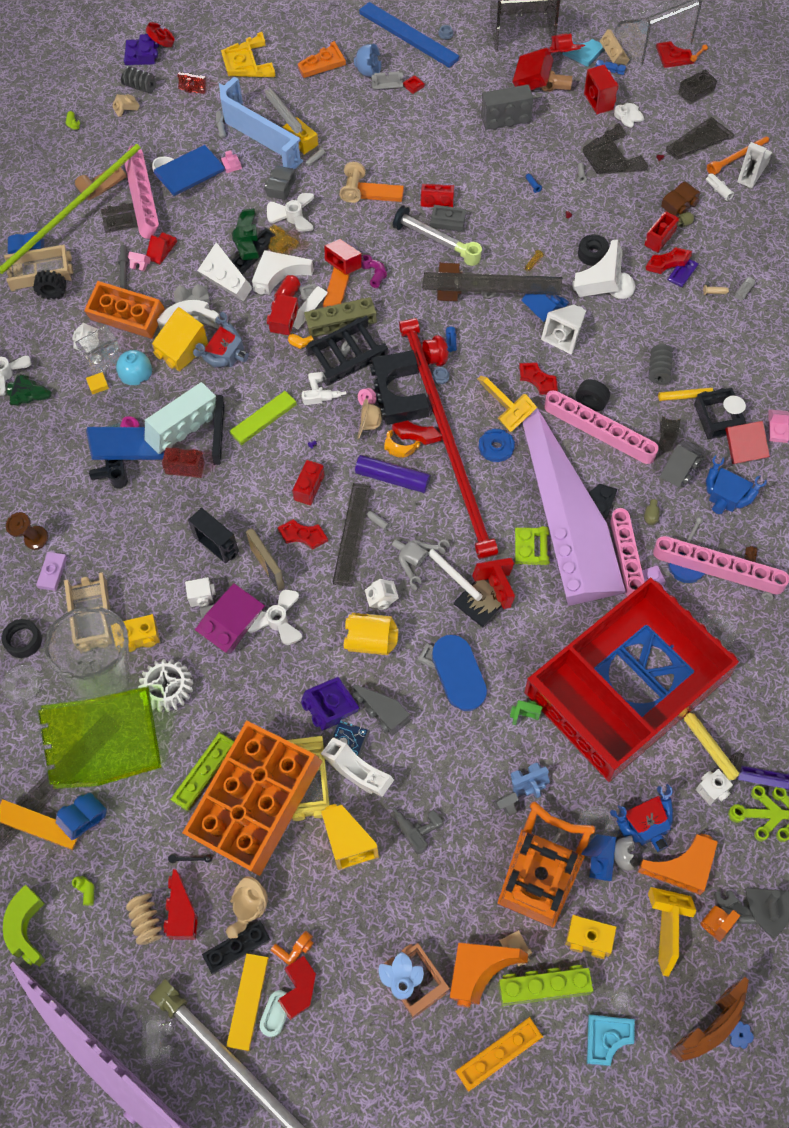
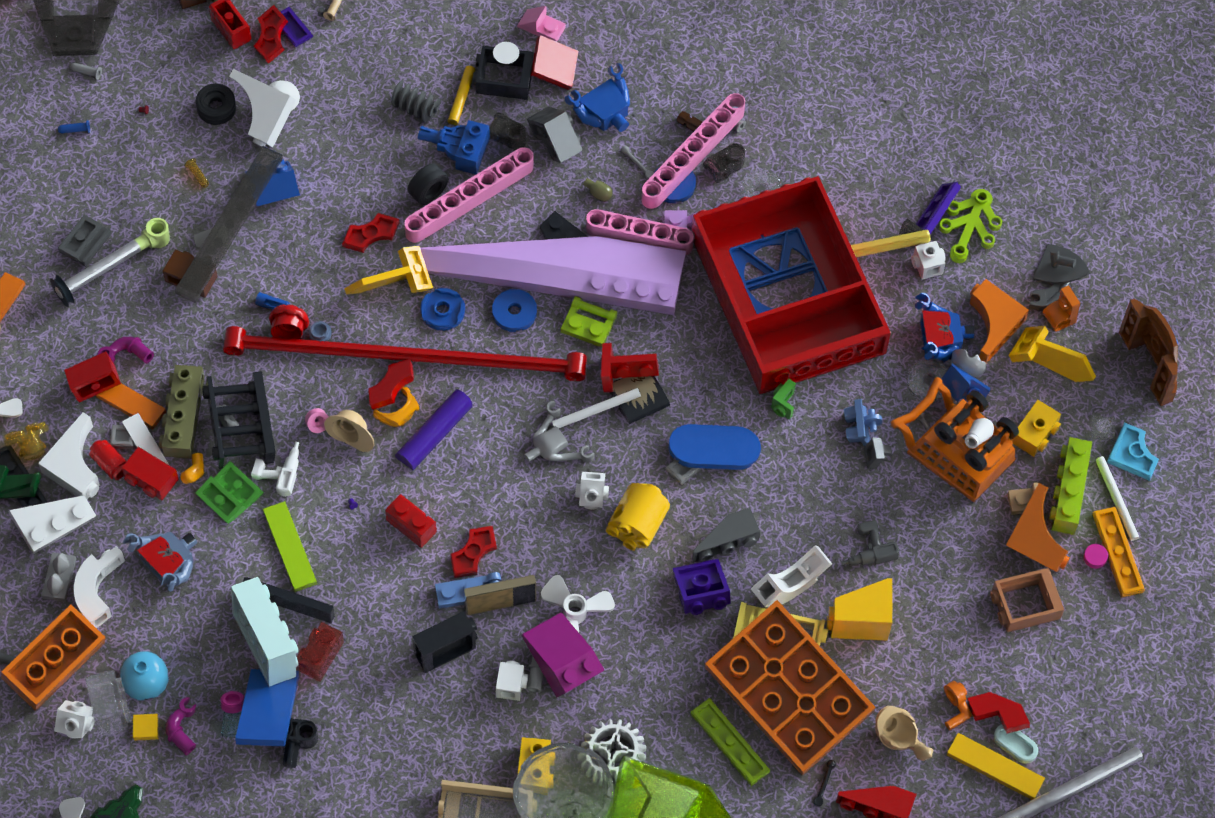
camera: 75 degrees left, 0 degrees up
(97, 400) = (175, 731): none -> magenta piece
(178, 339) = (134, 604): yellow slope -> none
(224, 955) = (938, 774): black tile -> none
(270, 540) = (452, 592): none -> medium blue plate
(291, 367) = (229, 492): none -> bright green slope
(352, 535) = (496, 498): clear smoke tile -> none
(352, 735) = (742, 581): dark blue sticker -> none
(379, 521) = (488, 466): light grey piece -> none
(395, 407) = (345, 395): black arch -> none
(401, 972) = (1022, 605): light blue plate -> none
(437, 195) = (40, 238): red bracket -> none
(486, 1033) = (1095, 556): none -> dark pink tile
(514, 501) = (509, 299): none -> blue tile
(537, 873) = (979, 432): none -> white cone
(553, 1036) = (1117, 499): none -> white bar
(563, 327) = (321, 173): white slope -> none
(640, 407) = (460, 143): none -> blue brick
(724, 594) = (721, 163): none -> clear smoke piece

